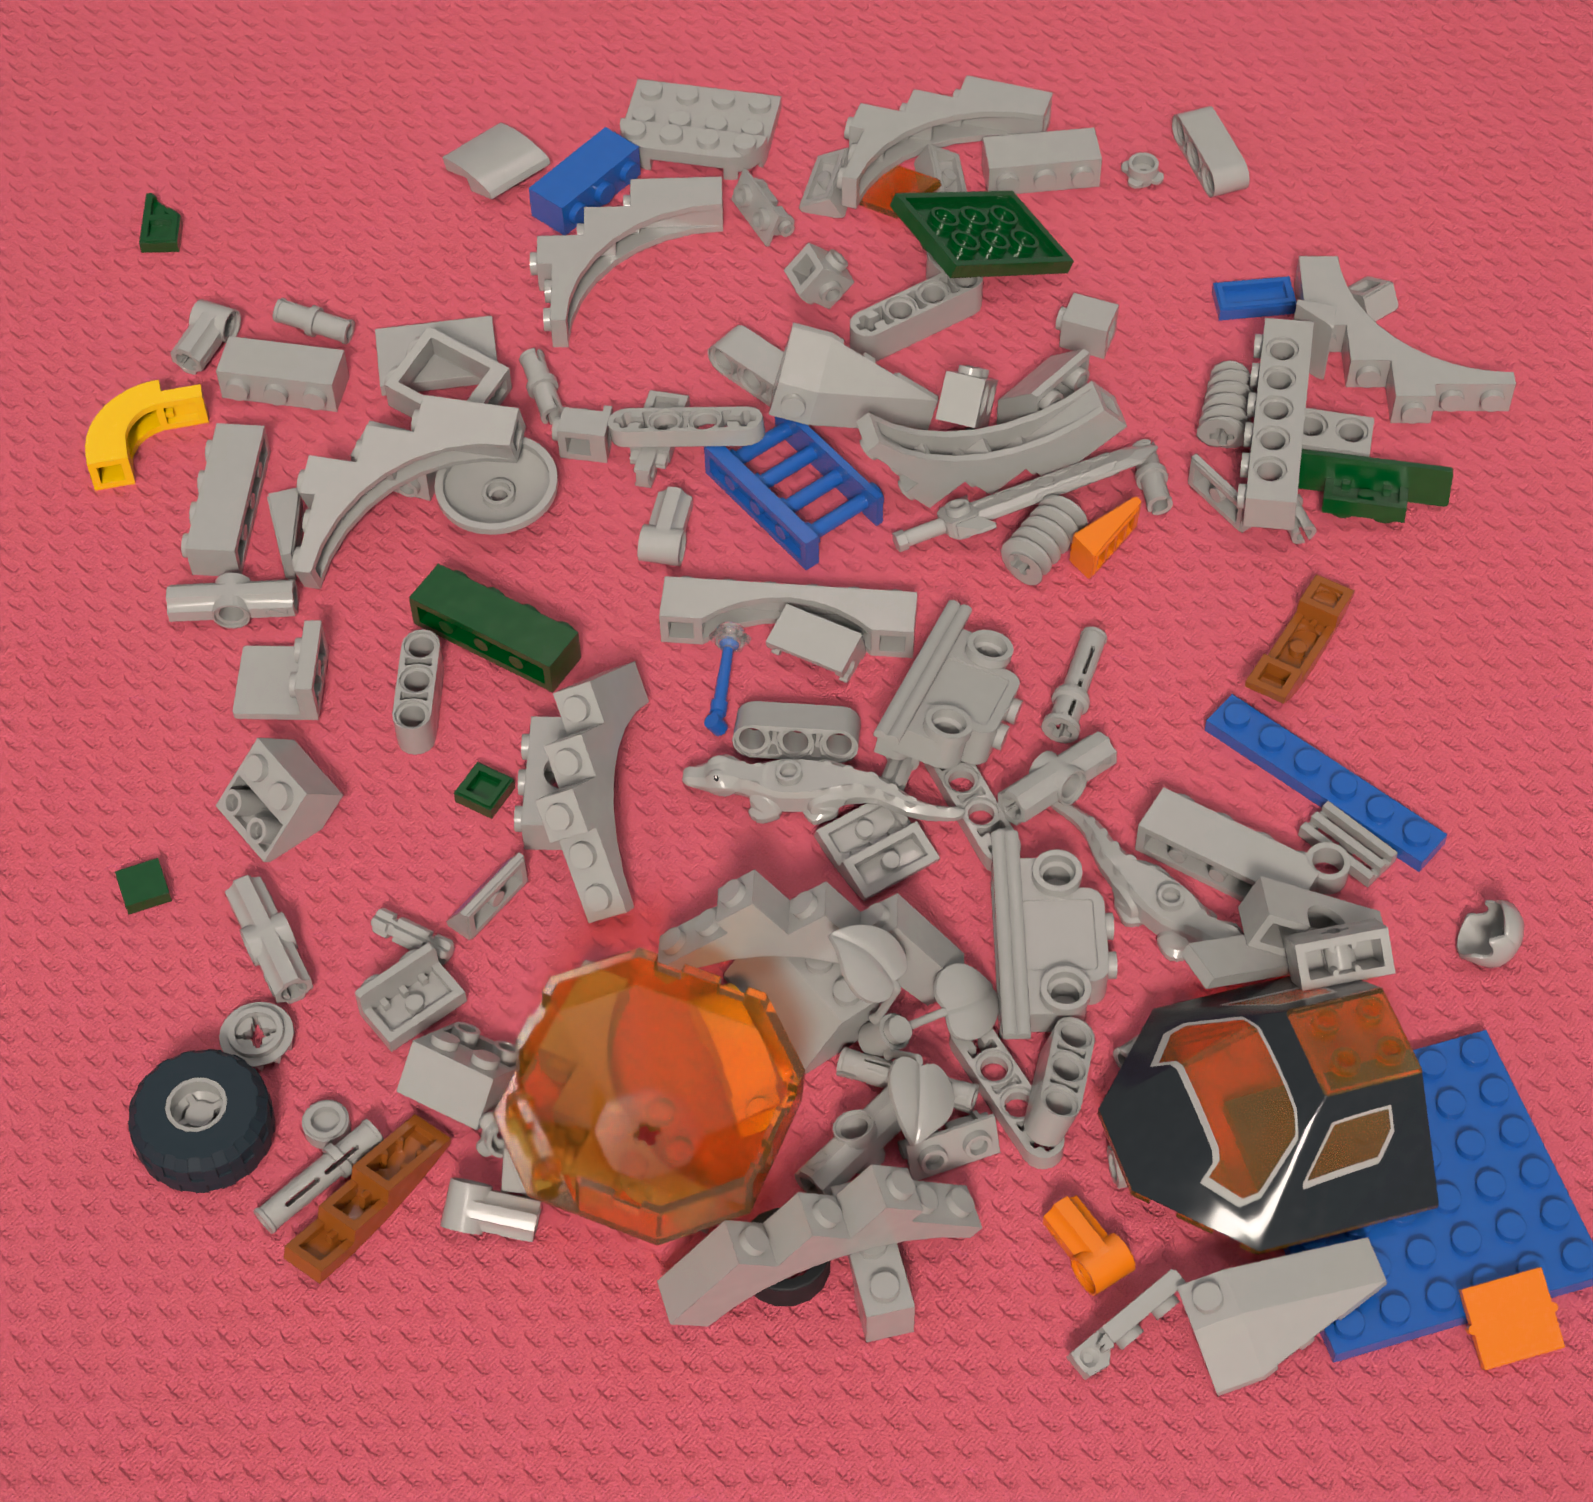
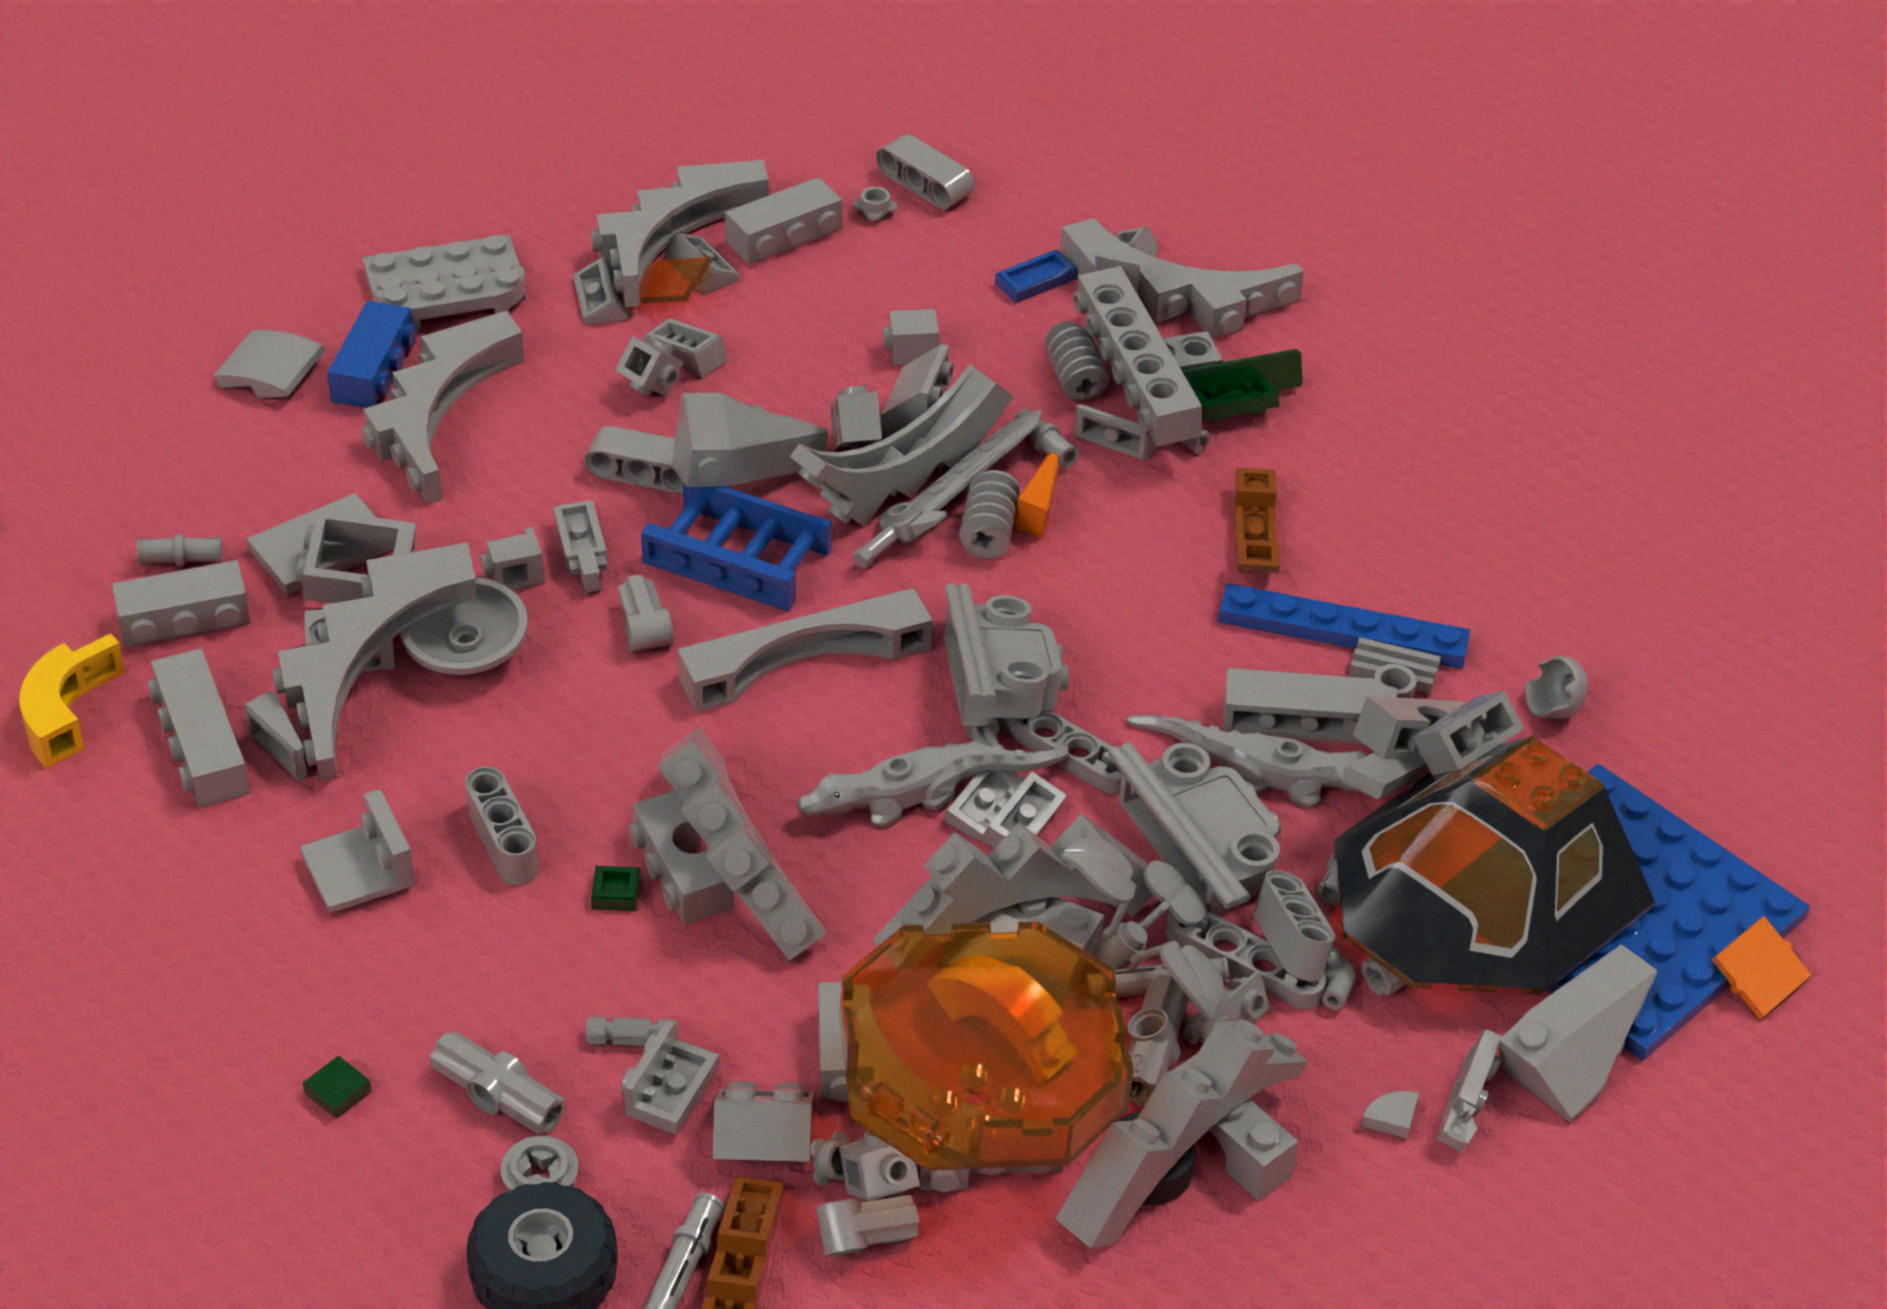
camera: 30 degrees left, 10 degrees down
(207, 329) = (76, 592): light grey piece -> none
(232, 600) = (262, 811): light grey piece -> none
(278, 797) = (424, 962): light grey slope -> none
(326, 1123) = (655, 1218): light grey tile -> none
(489, 897) = (681, 972): light grey slope -> none
(496, 627) = (545, 743): dark green brick -> none
(541, 384) = (440, 532): light grey pin -> none
(730, 639) = (763, 685): piece -> none
(743, 427) = (572, 534): light grey beam -> none
(761, 208) = (552, 330): light grey hinge -> none
(779, 720) = (859, 731): light grey beam -> none
(817, 641) = (845, 657): light grey hinge -> none
(877, 269) = (698, 348): none -> light grey slope
(915, 312) = (769, 351): light grey beam -> none
(981, 234) = (777, 287): dark green plate -> none
(1044, 1311) = (1392, 1113): none -> light grey tile
(1057, 778) = (1129, 695): light grey piece -> none
(1071, 697) = (1095, 630): light grey pin -> none
(1081, 1147) = (1339, 978): none -> light grey arm
(1095, 1256) = (1409, 1052): orange piece -> none

